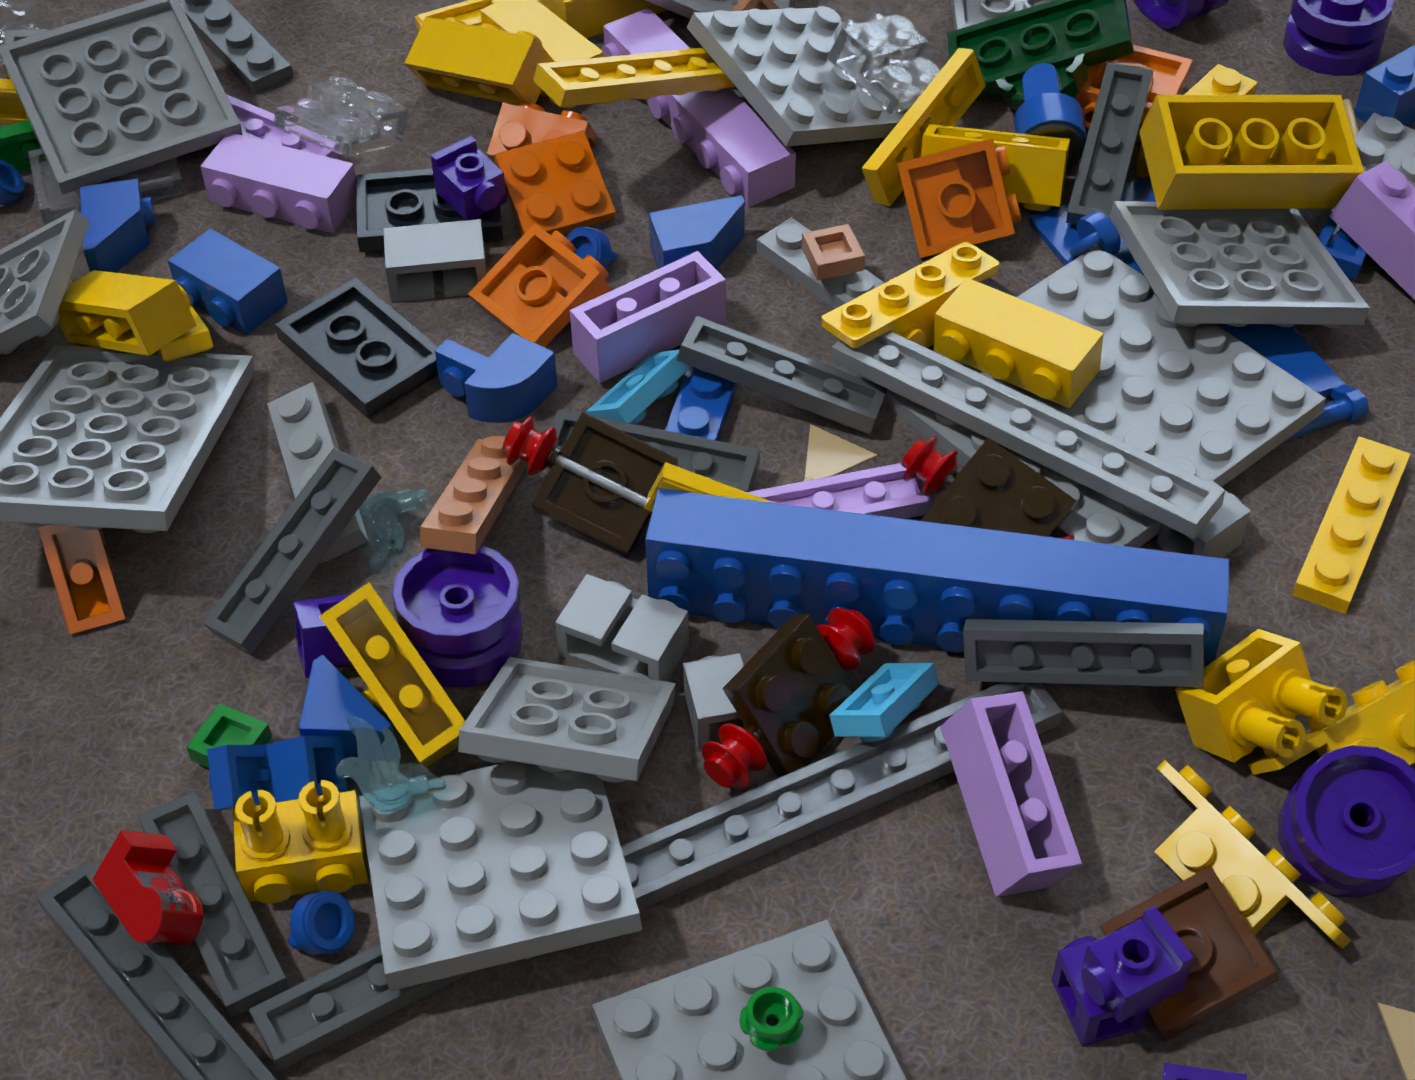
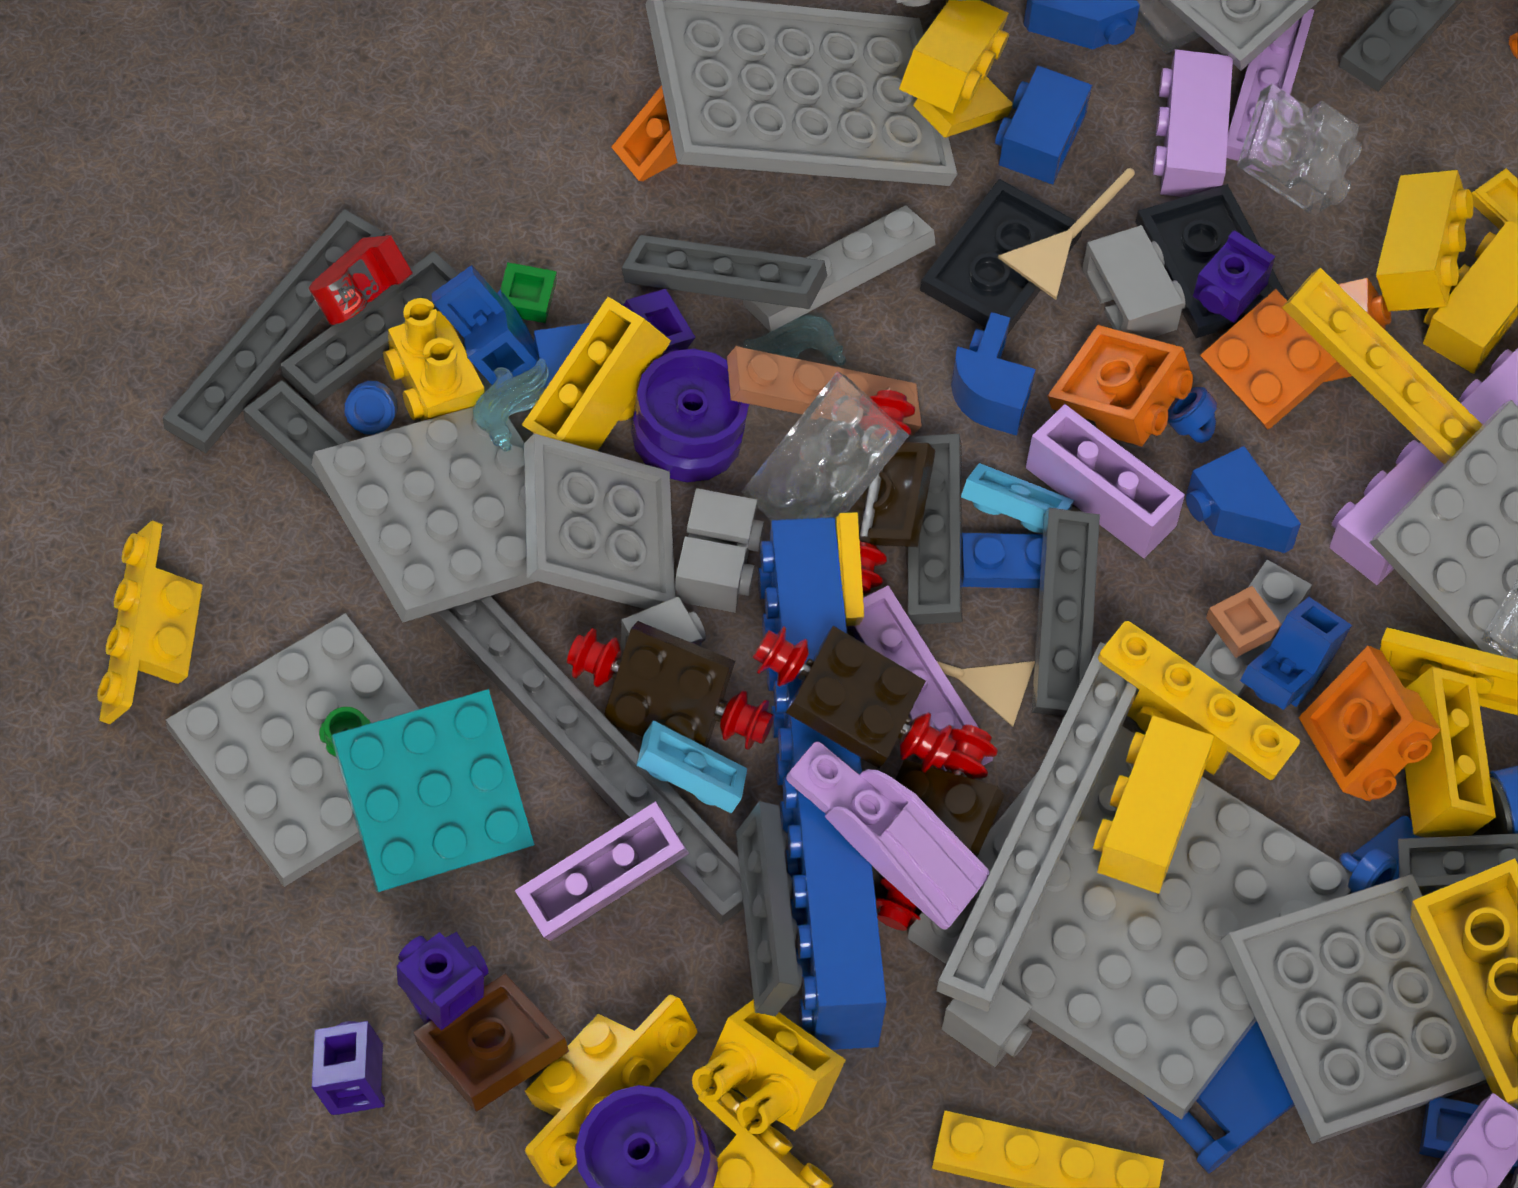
camera: 70 degrees right, 10 degrees up
(382, 309) = (1046, 259): none -> tan piece
(567, 503) = (827, 456): none -> clear plate
(864, 948) = (432, 790): none -> teal plate
(870, 218) = (1297, 655): none -> blue brick
(878, 509) = (855, 697): none -> dark brown plate
(1032, 516) = (893, 833): none -> lavender piece

